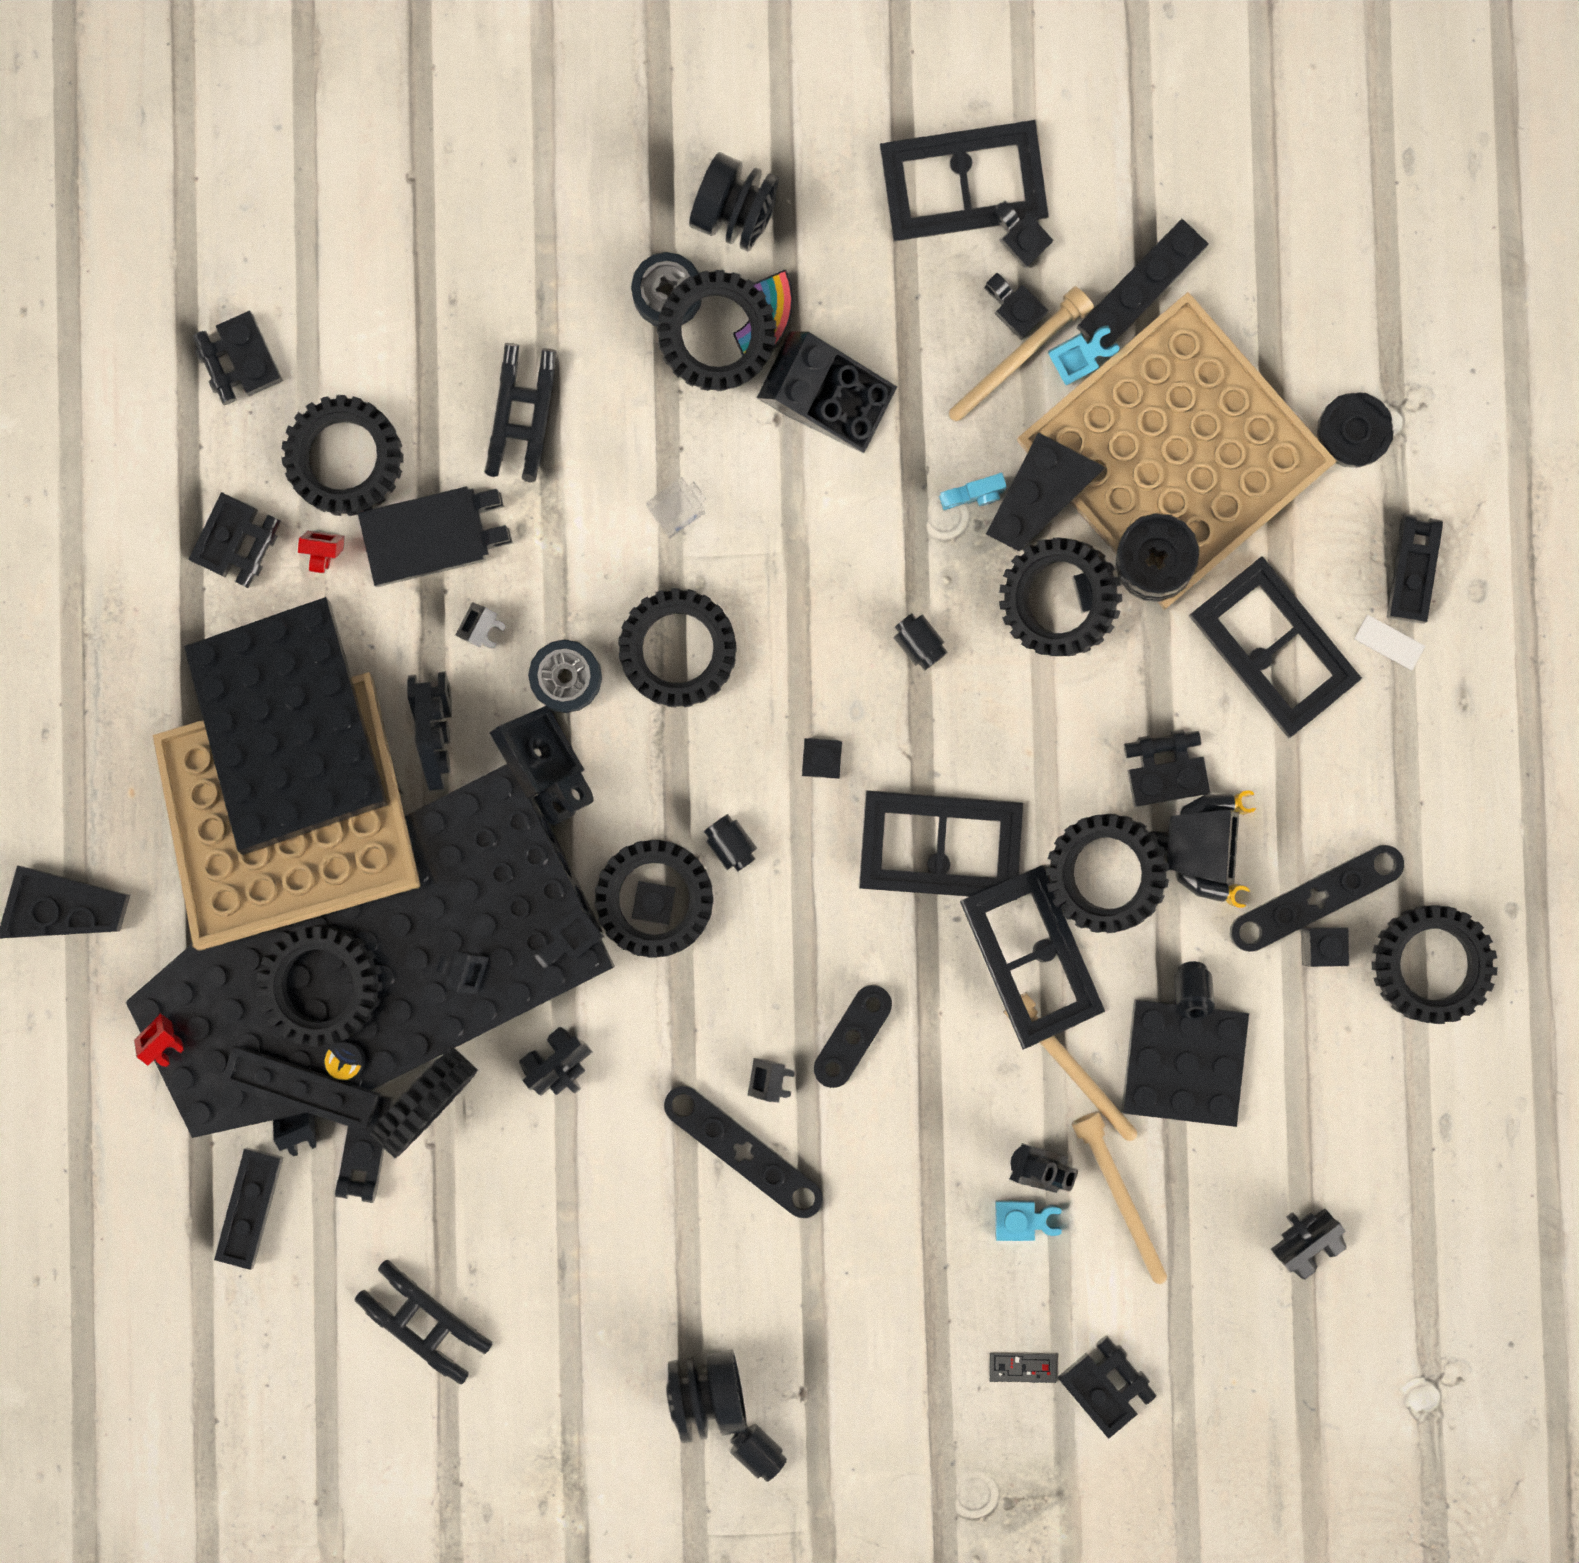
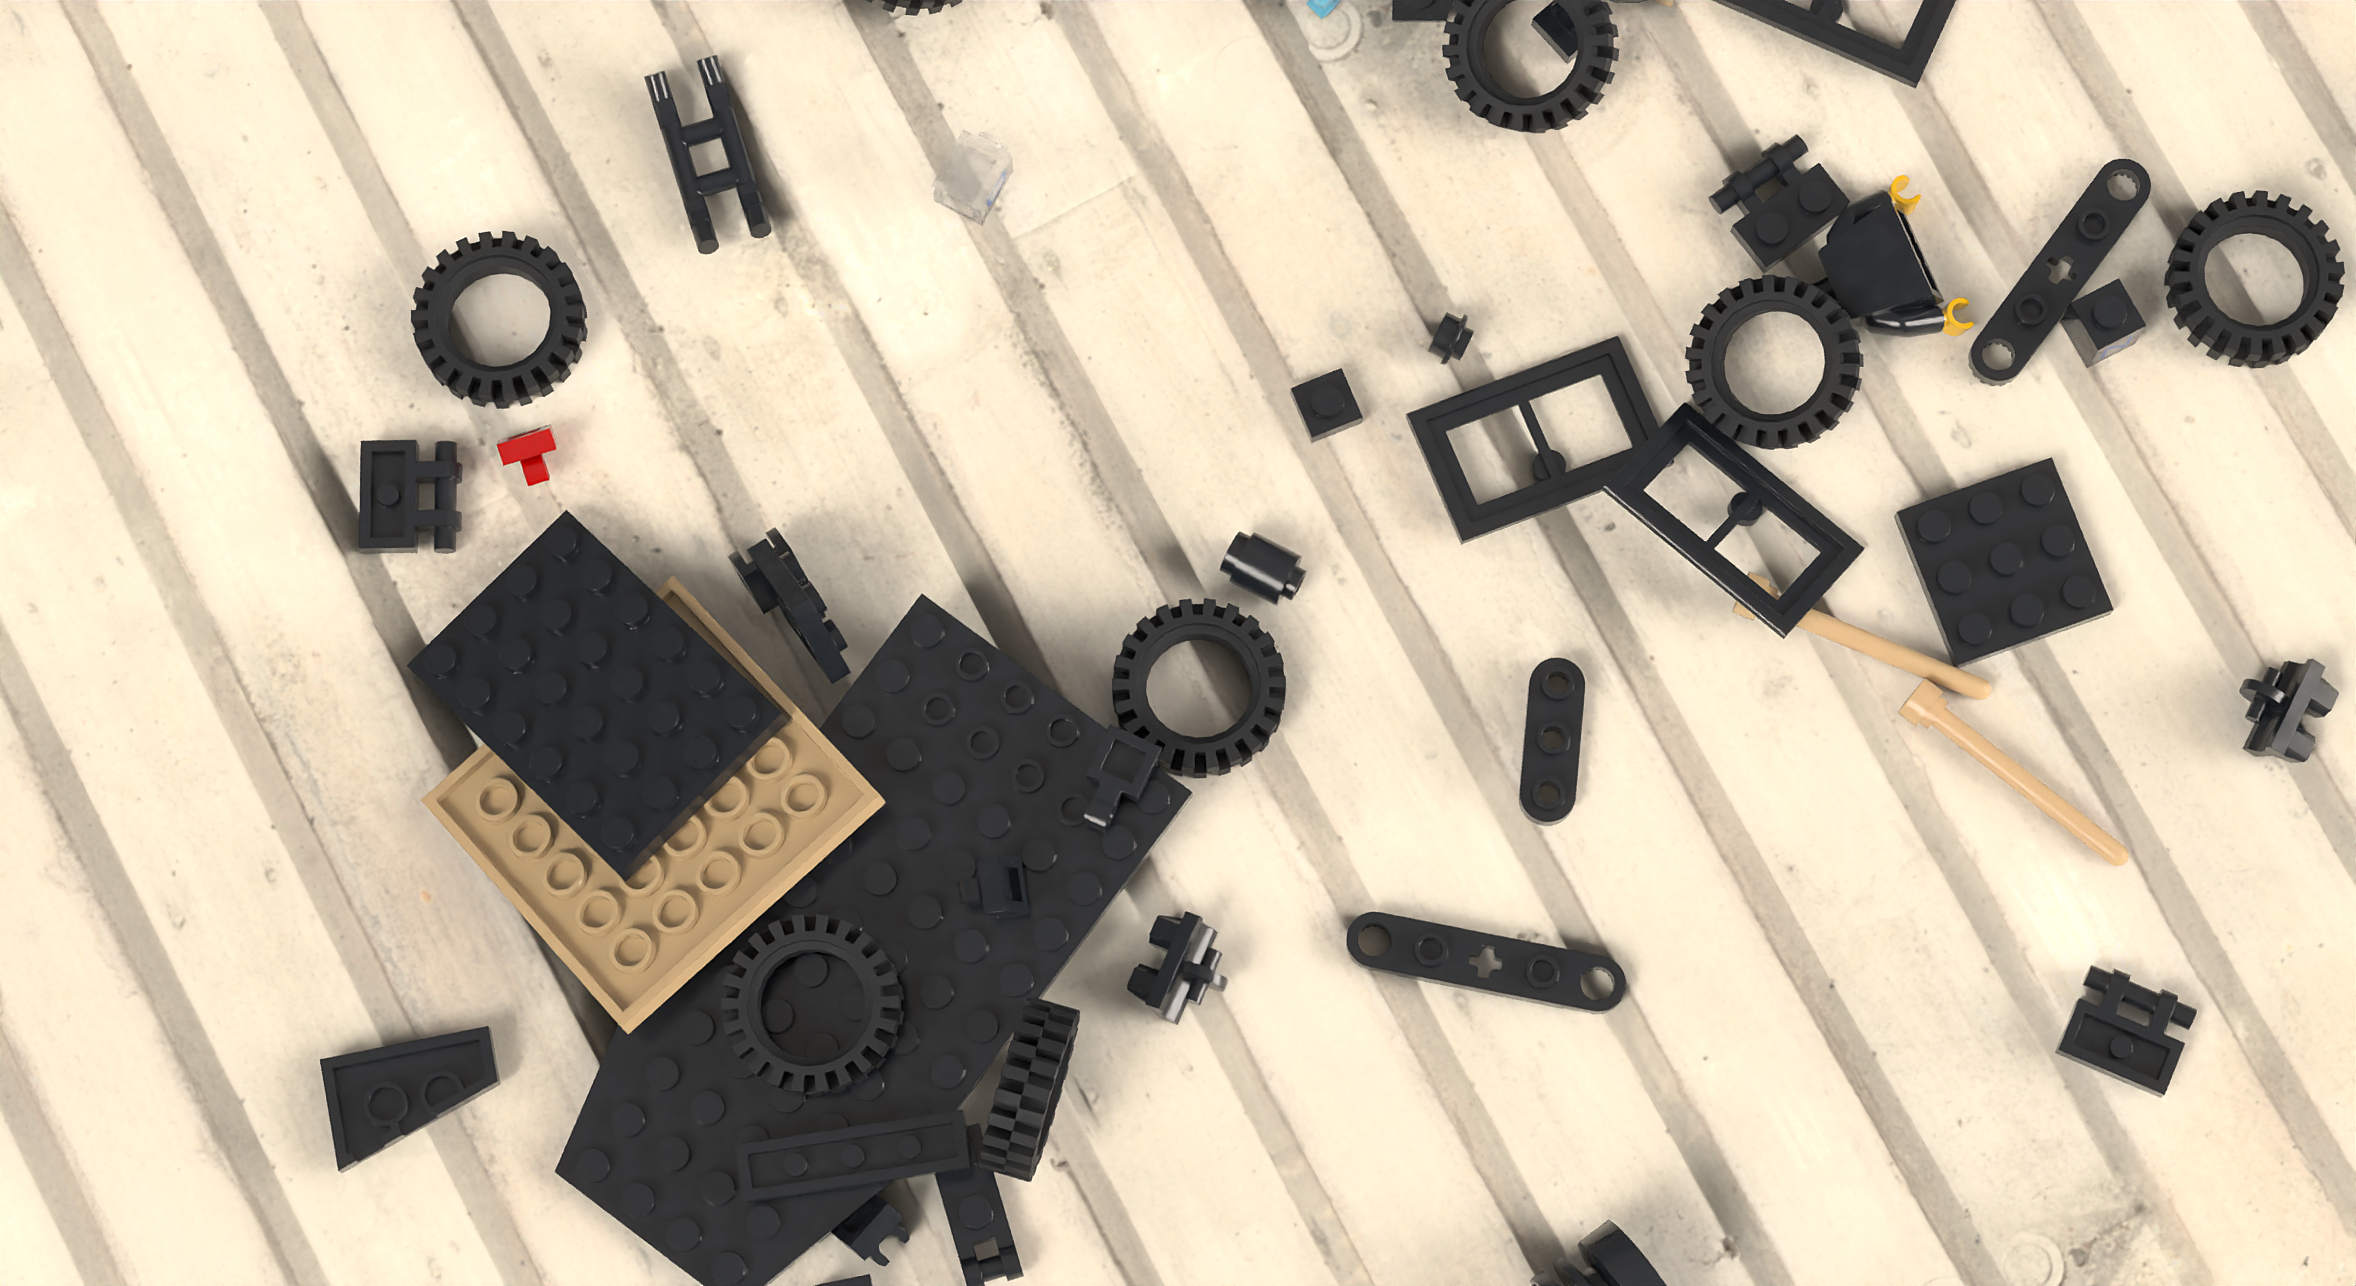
camera: 30 degrees left, 10 degrees down
(155, 1039) = (624, 1191): red tile -> none
(248, 353) = (308, 252): black plate -> none
(344, 1060) = (894, 1091): tile -> none
(430, 534) = (666, 365): black tile -> none
(477, 625) = (786, 449): tile -> none
(549, 774) = (967, 581): black plate -> none
(550, 663) = (949, 436): wheel -> none
(653, 902) = (1200, 697): black plate -> none
(666, 604) = (1059, 290): black tyre -> none
(767, 1080) = (1470, 849): black tile -> none
(919, 755) = (1451, 338): none -> black plate
(920, 641) = (1377, 192): black brick -> none
(1019, 1220) = (1897, 873): medium azure plate -> none
(1022, 1367) = (2003, 1066): dark grey sticker -> none
(1042, 1169) = (1890, 784): black hips -> none
(1194, 990) = (1965, 459): black brick -> none

